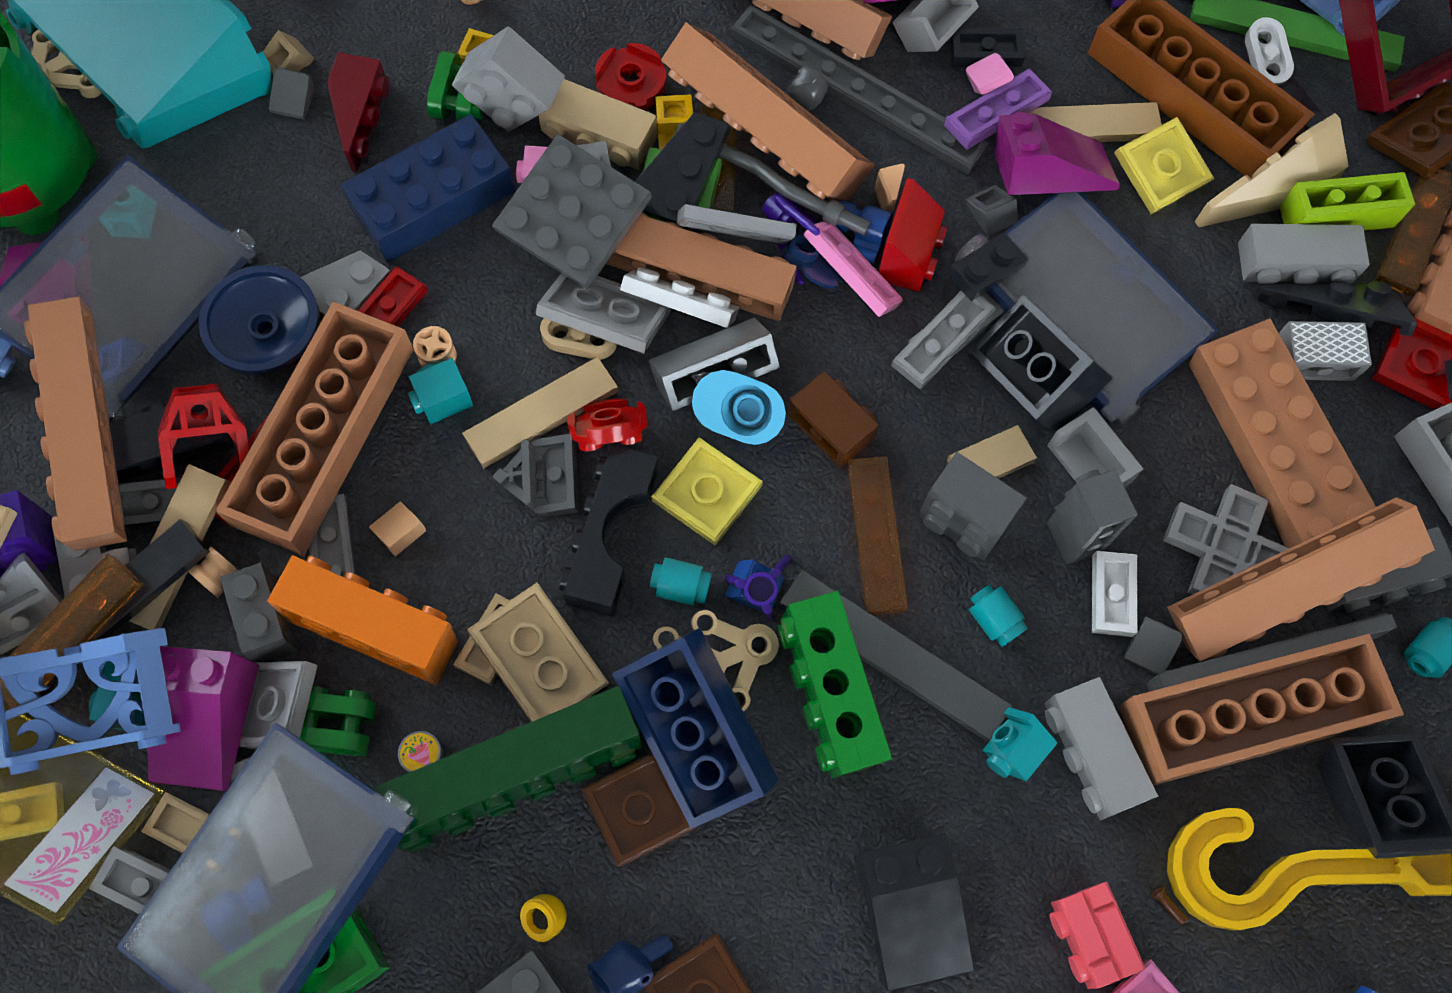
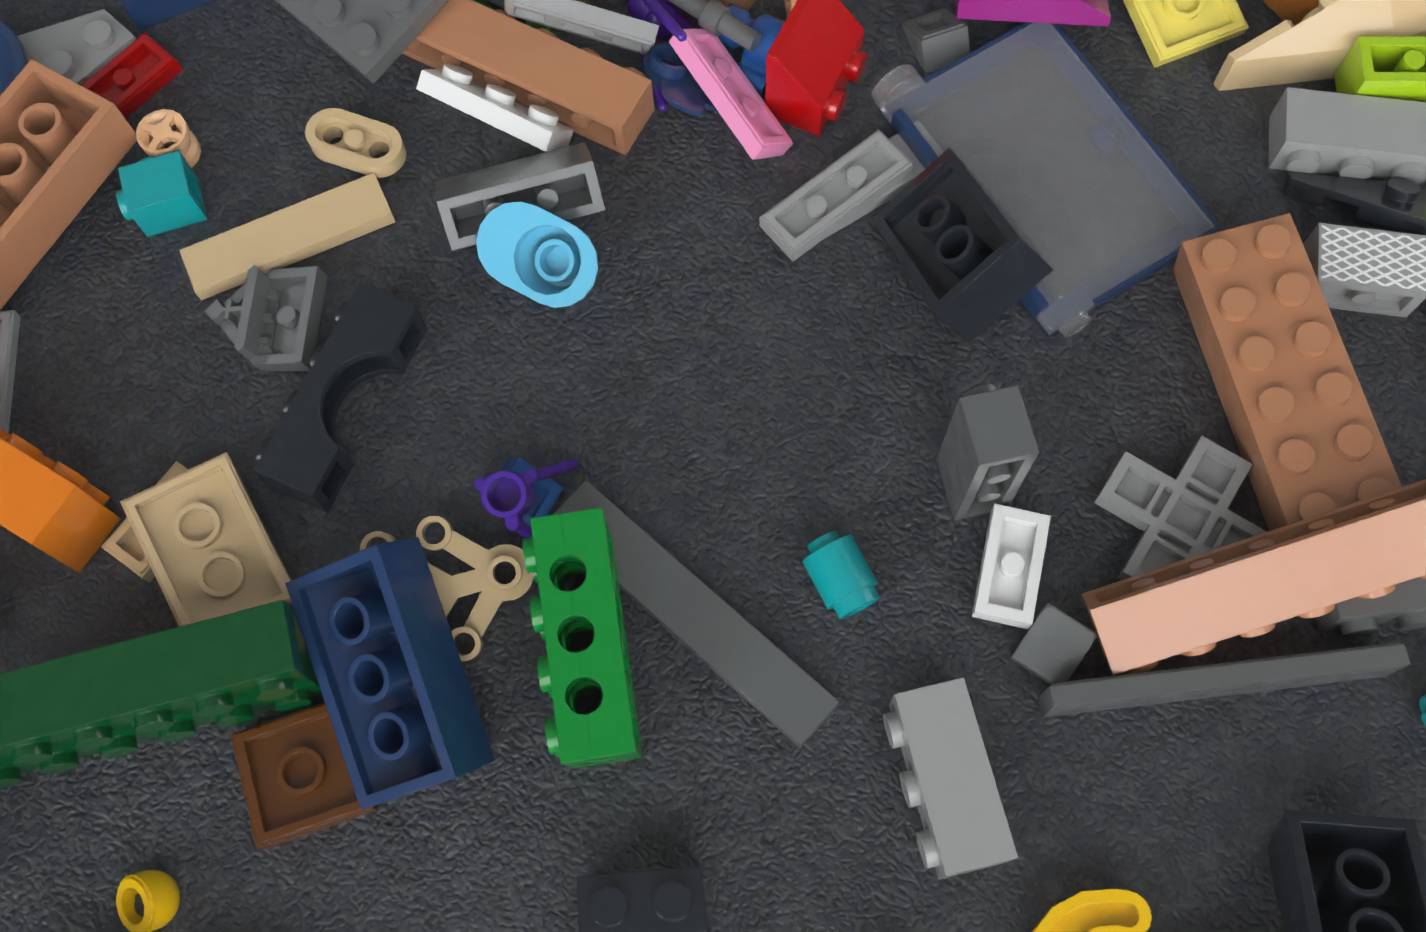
camera: 15 degrees right, 0 degrees up
(398, 528) = (72, 364): light nougat slope -> none
(419, 750) = (31, 648): tile -> none
(603, 312) = (390, 115): light grey tile -> none
(608, 423) = (362, 255): red plate -> none
(681, 581) = (419, 476): teal brick -> none
(707, 491) = (483, 362): light yellow tile -> none
(833, 419) = (666, 285): reddish brown brick -> none
(876, 536) = (698, 449): clear orange tile -> none
(970, 506) = (824, 421): dark grey brick -> none
(987, 266) = (909, 107): black plate -> none
(1001, 453) = (874, 364): tan tile -> none
(1018, 745) = (834, 758): teal brick -> none
(1092, 445) = (1013, 354): light grey panel -> none
(1260, 709) = (1191, 754): nougat brick -> none

